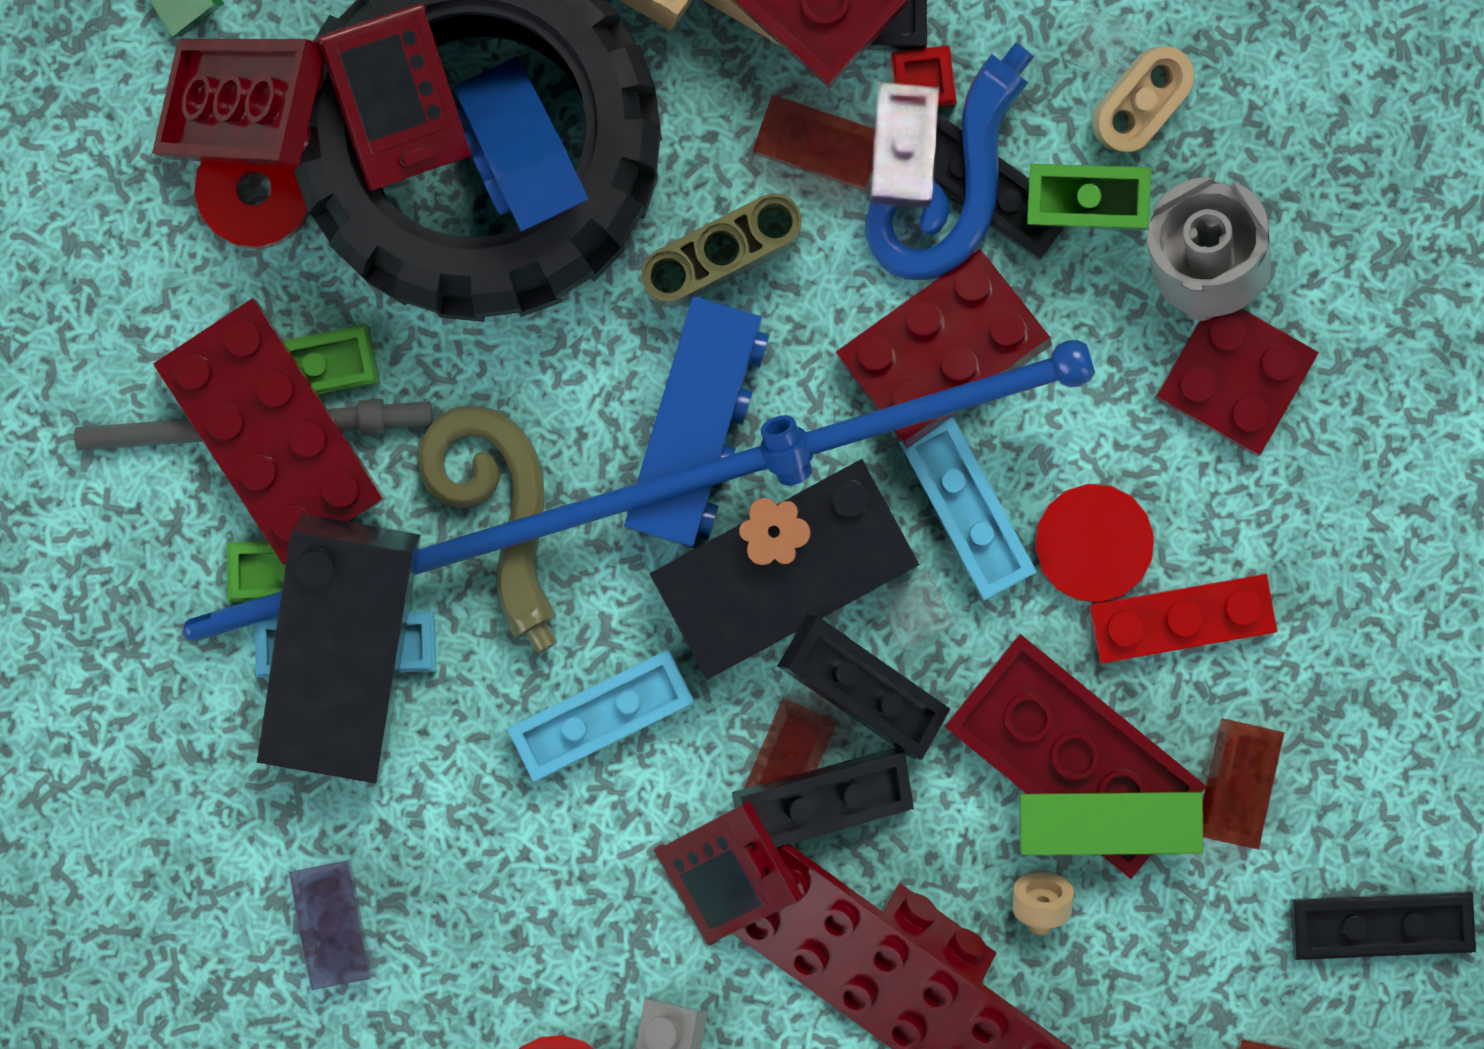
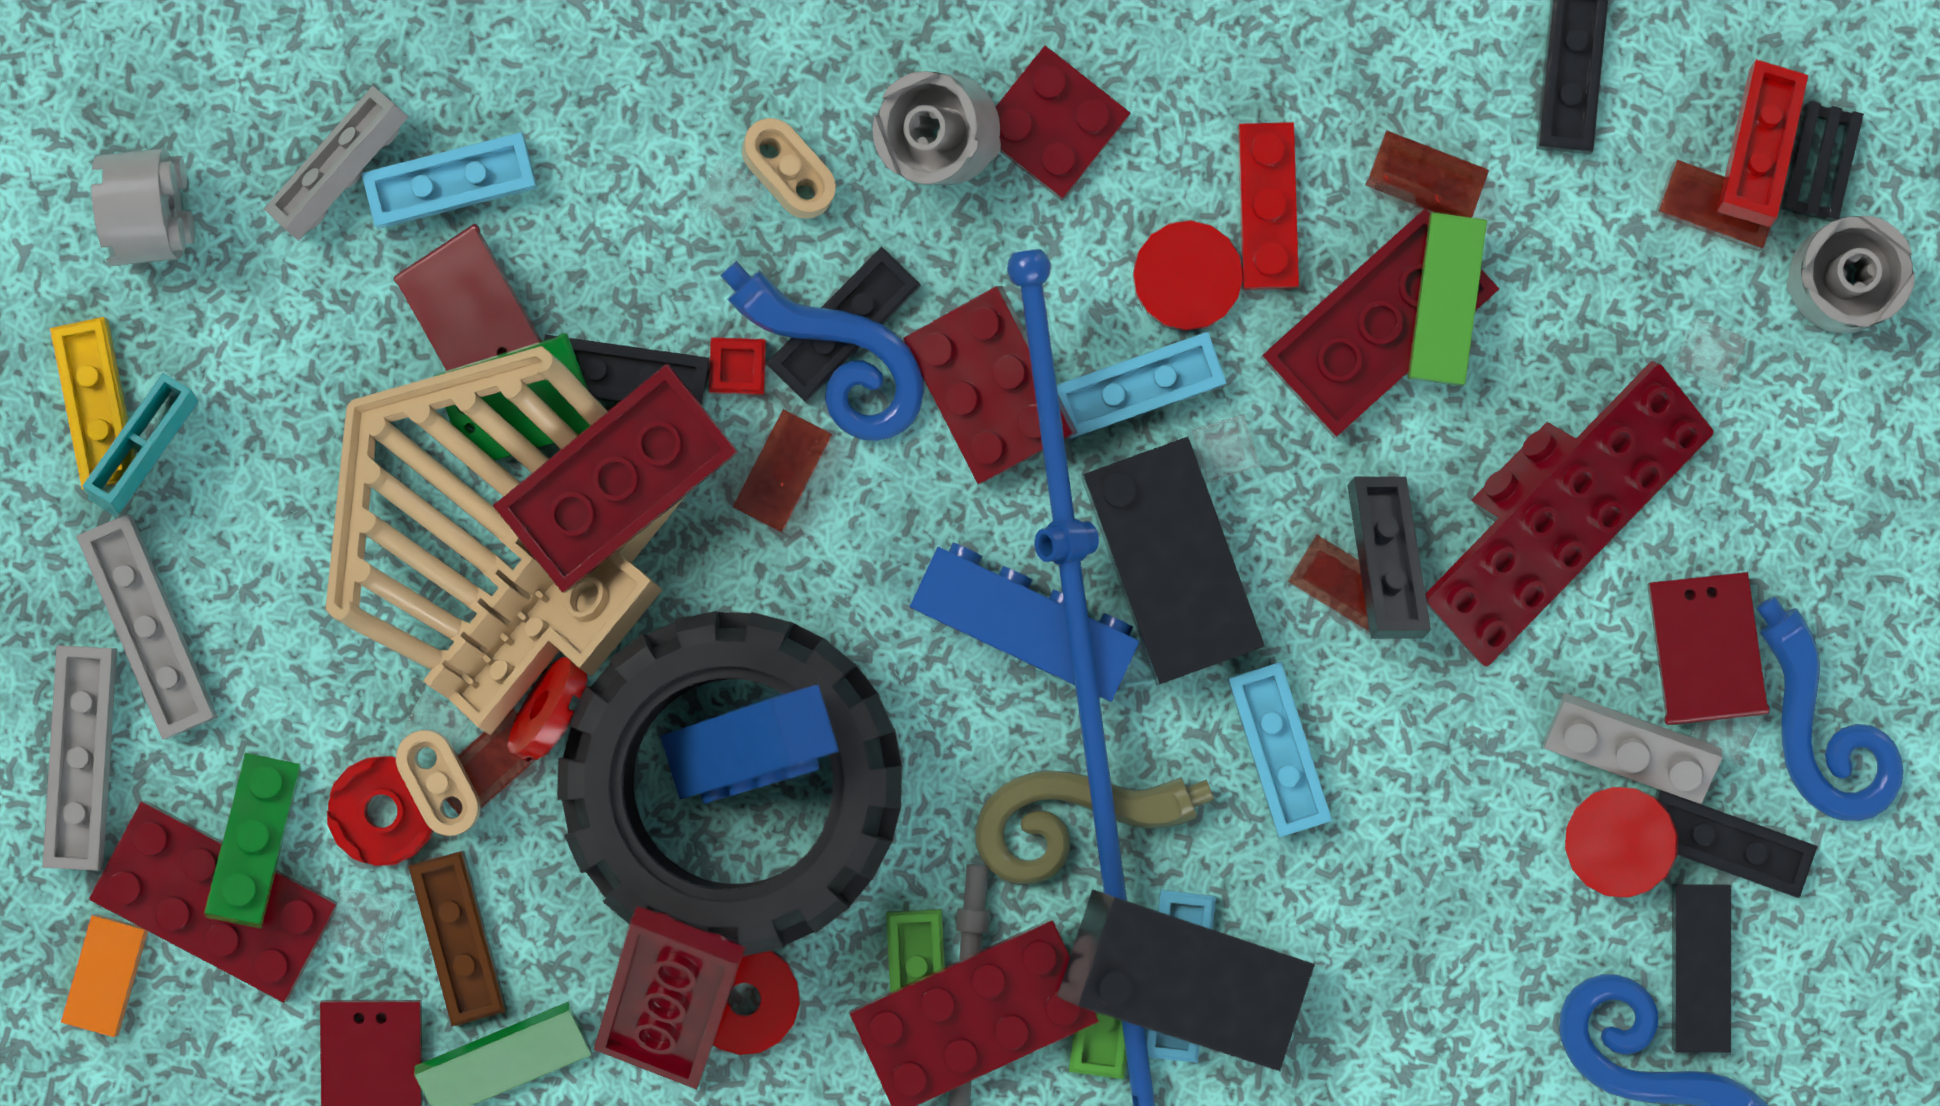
camera: 85 degrees left, 0 degrees up
(330, 924) = (1434, 1026): clear purple plate -> none
(394, 96) = (691, 850): dark red container -> none
(728, 873) = (1443, 653): dark red container -> none
(739, 226) = (860, 548): olive beam -> none
(762, 547) = (1152, 576): nougat plant -> none
(863, 687) = (1291, 504): black plate -> none
(904, 145) = (799, 392): plate -> none
(1042, 901) = (1507, 372): tan tile -> none
(1089, 196) = (873, 229): bright green slope -> none

